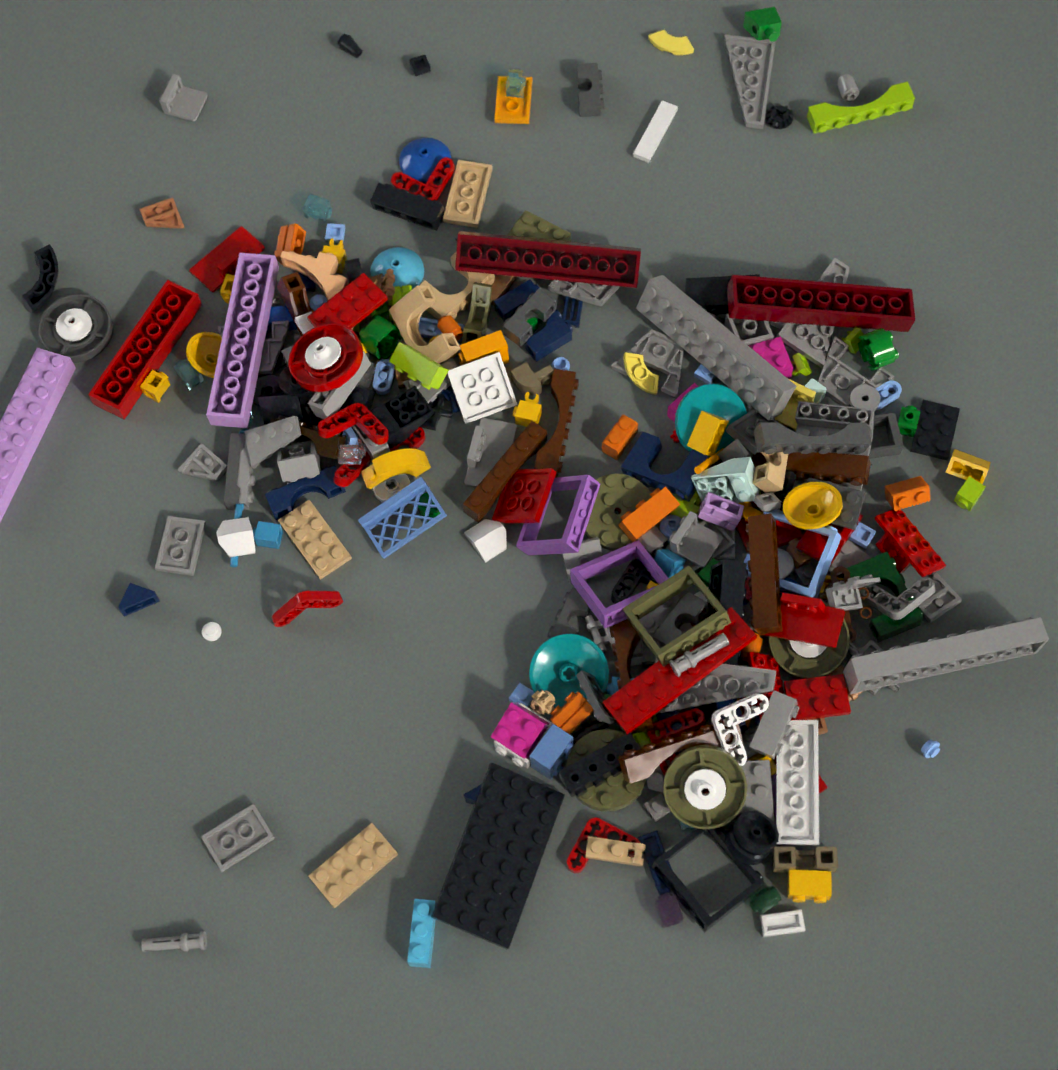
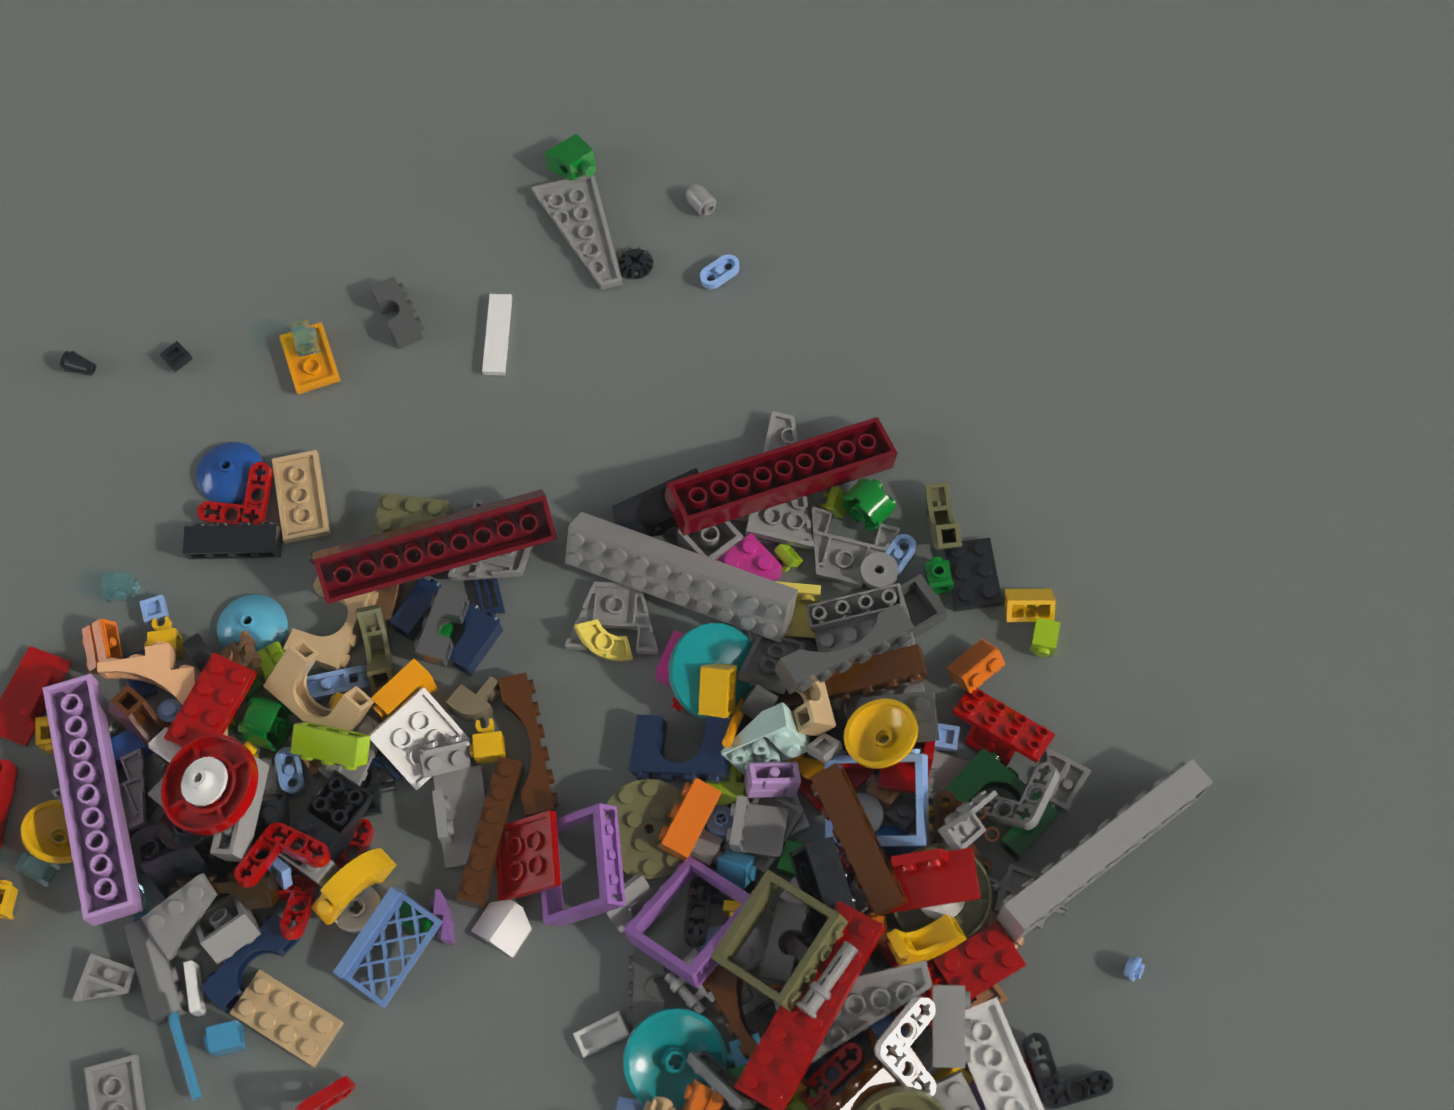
camera: 25 degrees left, 0 degrees up
(236, 537) = (185, 1060): white slope -> none
(261, 490) = (193, 983): none -> white tile
(351, 453) = (290, 891): clear bracket -> none
(447, 324) = (348, 677): orange brick -> none
(448, 522) = (442, 910): none -> medium lavender slope
(494, 407) = (444, 757): none -> light grey bracket
(524, 637) = (601, 1034): none -> white tile
(561, 363) = (502, 668): light blue plate -> none
(619, 437) = (612, 732): orange brick -> none
(671, 44) = (470, 221): light yellow tile -> none
(704, 374) = (679, 613): light blue plate -> none
(787, 666) = (927, 941): none -> yellow arch
(818, 388) = (818, 578): light aqua slope -> none
(829, 116) = (692, 243): lime arch -> none
(835, 800) = (1053, 1081): none -> black beam
(838, 145) = (717, 271): none -> light blue plate
(929, 377) = (942, 527): none -> olive arch

